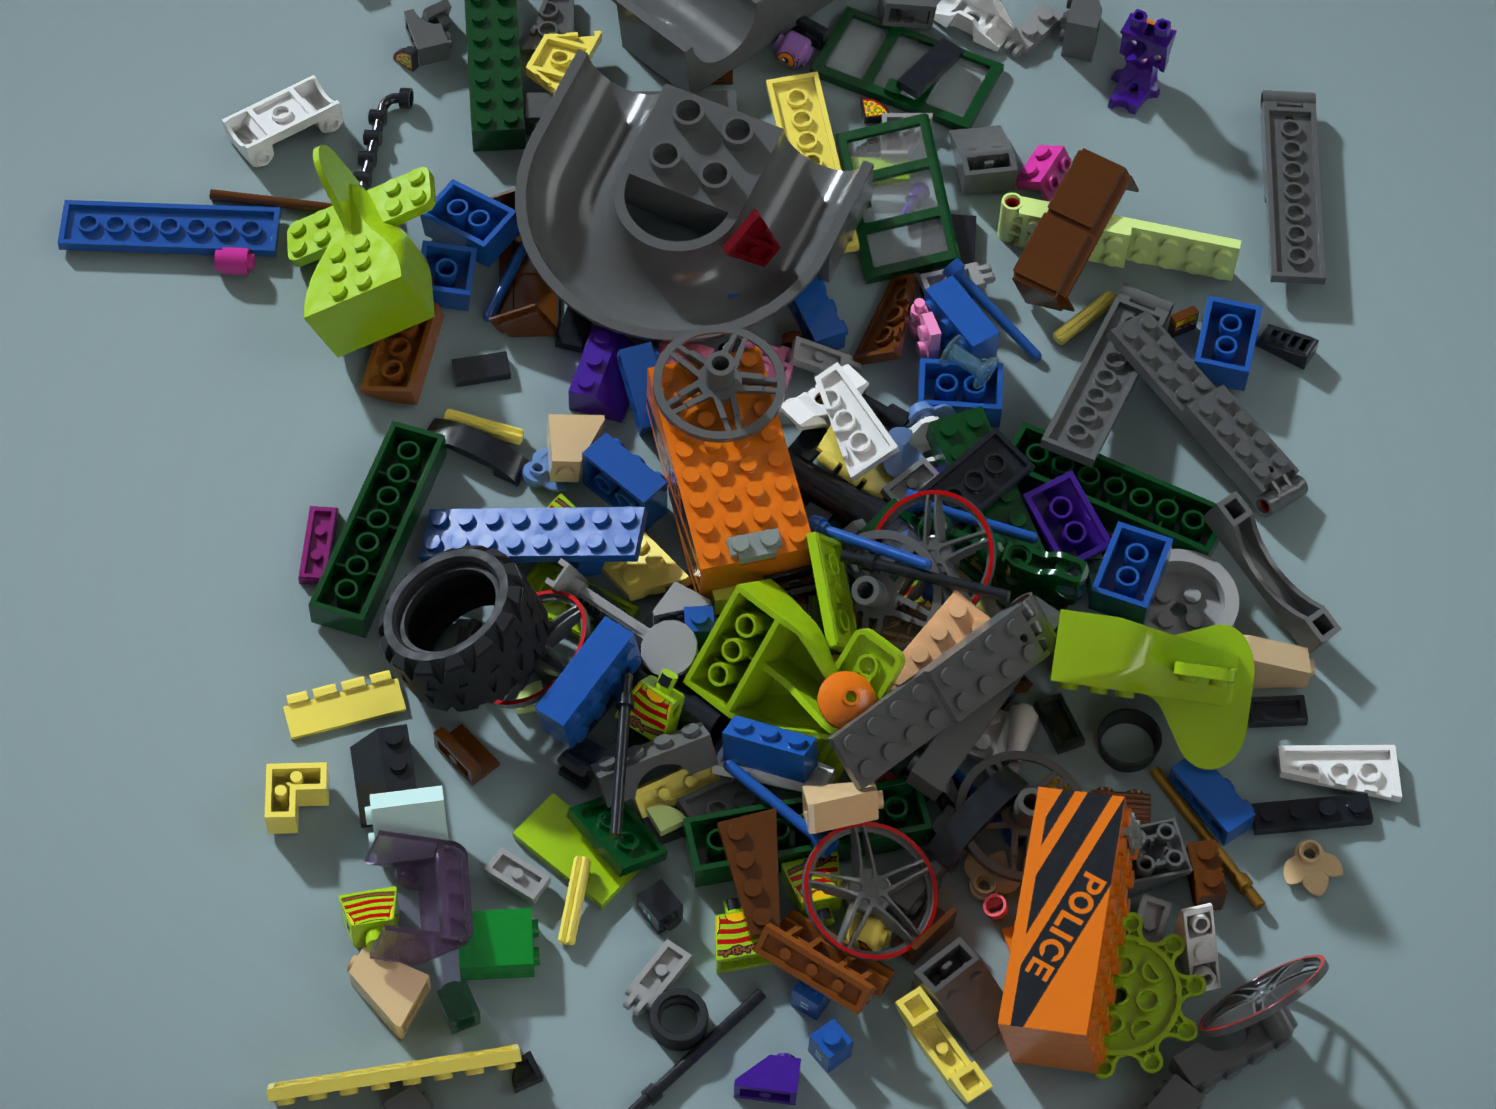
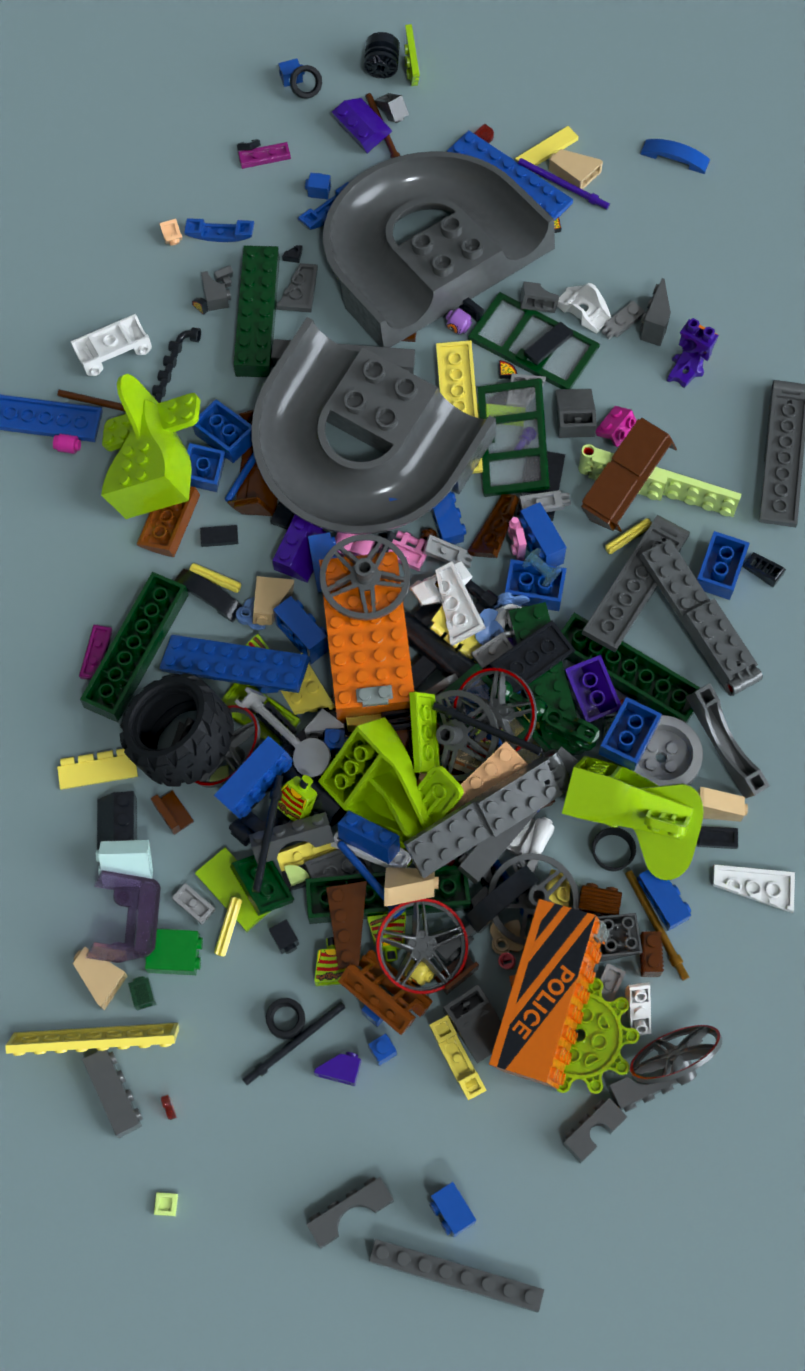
camera: 10 degrees right, 10 degrees up
(290, 787) = (51, 828): light yellow brick -> none
(367, 913) = (93, 924): lime torso -> none
(526, 1073) = (181, 1044): black tile -> none
(555, 55) = (297, 311): light yellow wing -> none
(656, 977) = (275, 986): light grey hinge -> none
(752, 241) = (407, 466): dark red wing -> none
(822, 526) = (422, 682): blue piece -> none
(833, 700) = (411, 810): orange dish -> none
(957, 269) = (544, 498): blue piece -> none
(967, 518) = (535, 689): blue piece -> none
(1059, 723) = (569, 832): black tile -> none
(1183, 321) = (695, 545): reddish brown tile -> none
(1312, 814) = (730, 915): black plate -> none
(1312, 872) = (723, 957): tan plate -> none

